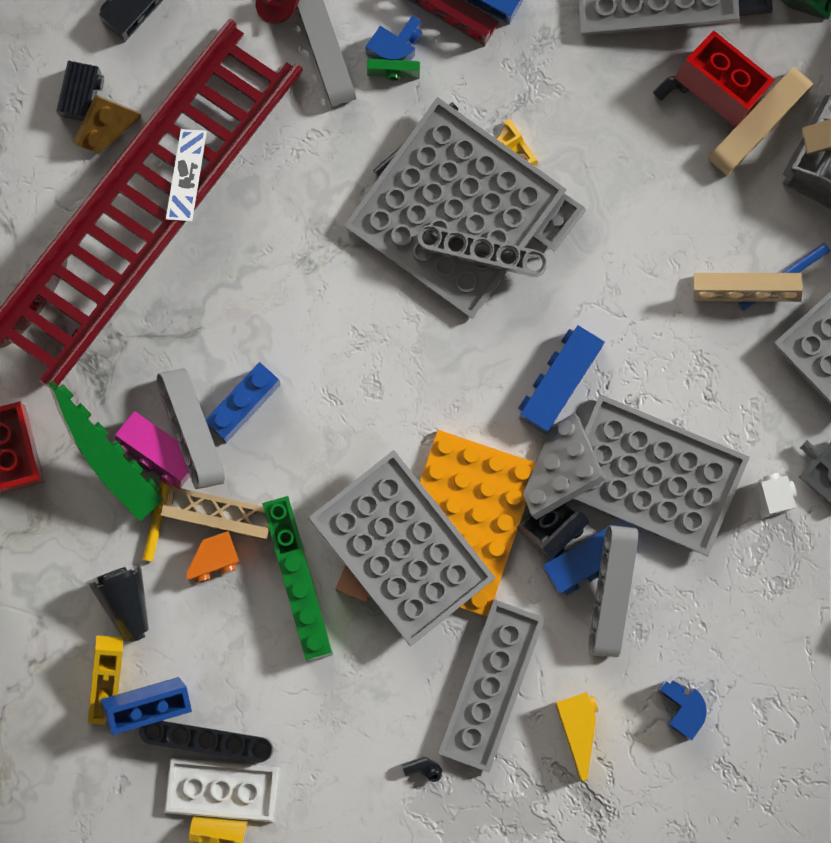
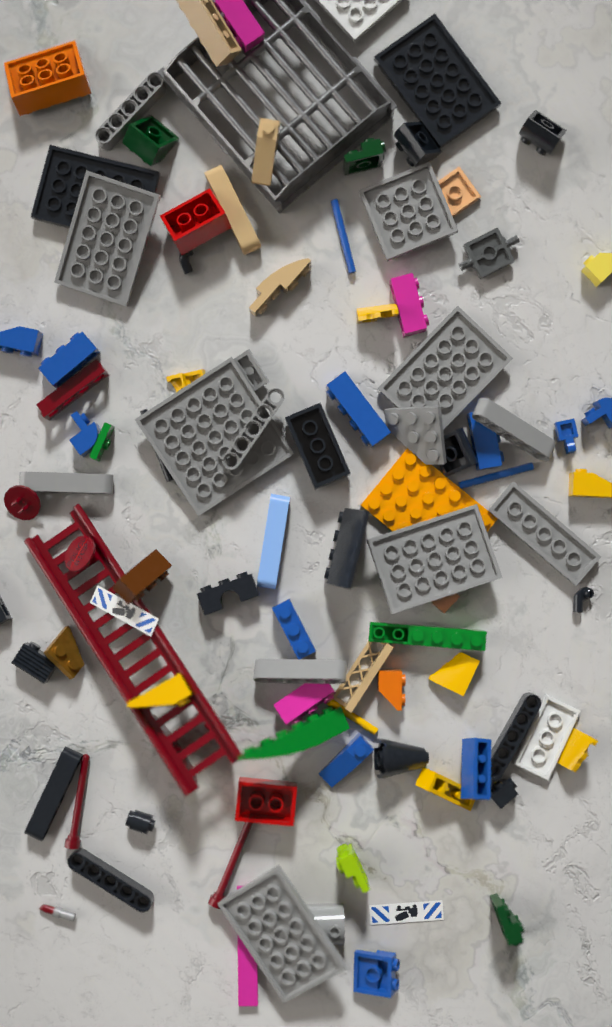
camera: 65 degrees left, 5 degrees up
(96, 534) = (346, 760): none -> blue slope
(100, 265) = (164, 695): none -> yellow slope
(128, 755) = (503, 792): none -> black brick
(237, 182) = (142, 577): none -> reddish brown brick
(239, 93) = (80, 553): none -> dark red piece
(243, 282) = (211, 598): none -> black arch
(262, 637) = (456, 673): none -> yellow slope
(347, 334) = (273, 541): none -> light blue beam
(373, 431) = (347, 547): none -> black slope
(492, 343) = (317, 446): none -> black brick
(544, 594) = (496, 475): none -> blue bar
(638, 666) = (566, 432): none -> blue plate
(696, 219) = (284, 279): none -> tan slope
(698, 354) = (373, 313): none -> yellow slope
(726, 394) = (409, 304): none -> dark pink brick
(748, 287) = (342, 262): tan fence -> none
(775, 495) = (490, 298): white brick -> none

